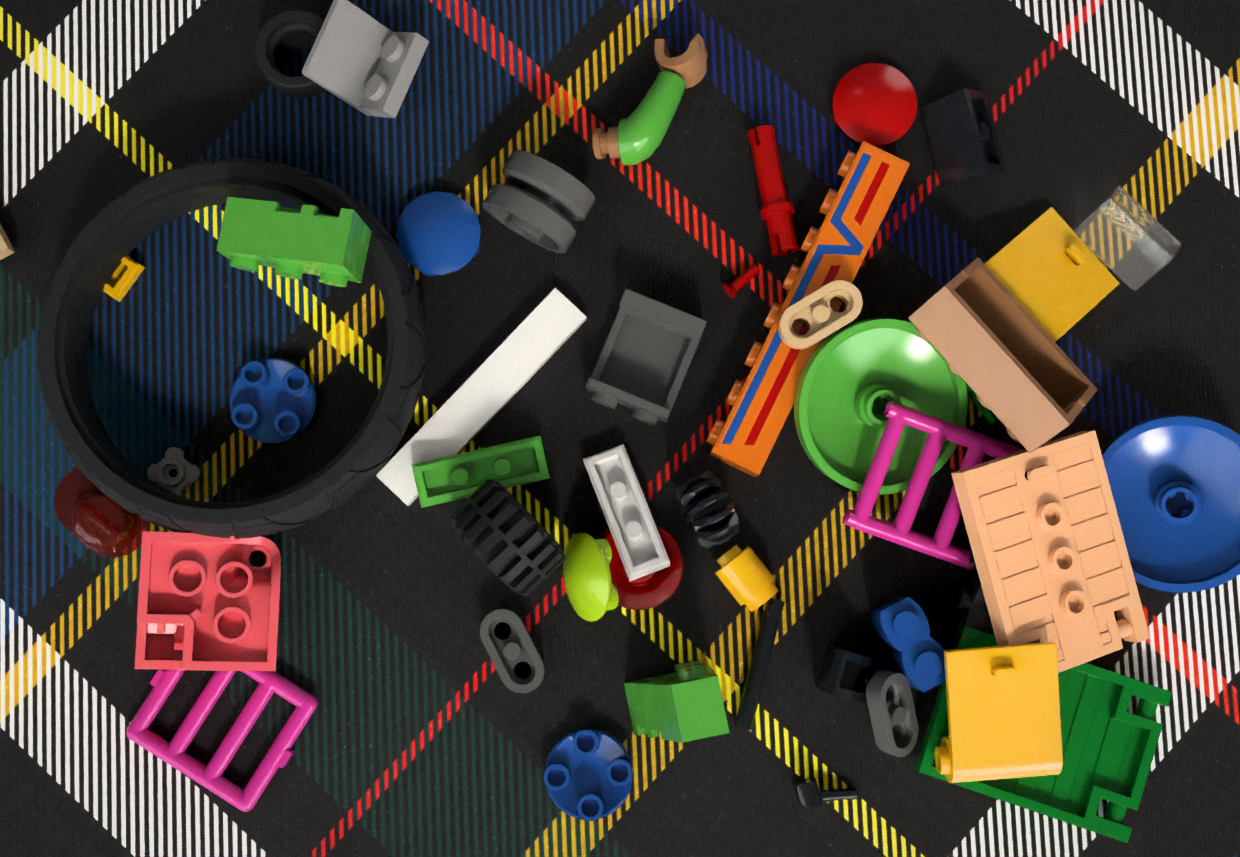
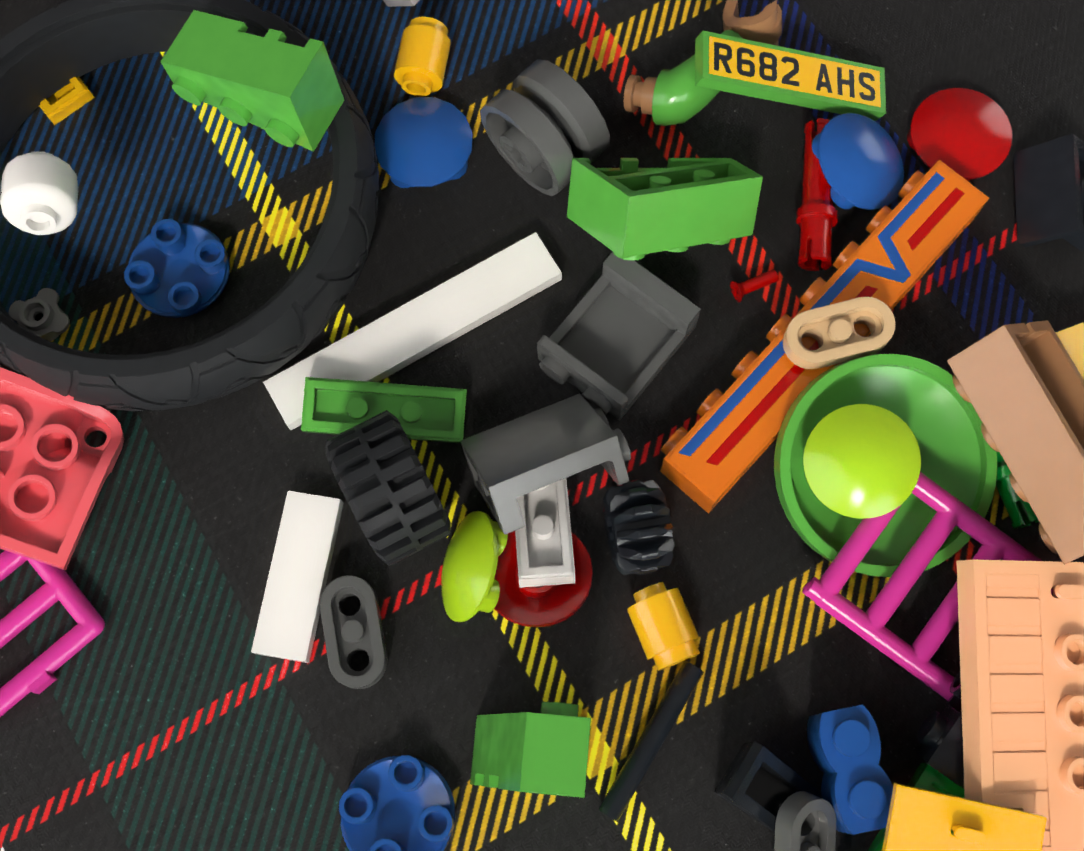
camera: 20 degrees right, 10 degrees down
(155, 387) = (39, 193): none -> white head
(415, 159) = (422, 56): none -> yellow brick
(454, 620) = (297, 577): none -> white tile
(617, 475) = (542, 451): none -> dark grey panel
(653, 245) = (663, 208): none -> bright green wedge
(724, 98) = (788, 75): none -> tile
(799, 156) = (859, 162): none -> blue dish
(862, 414) = (862, 461): none -> lime dish

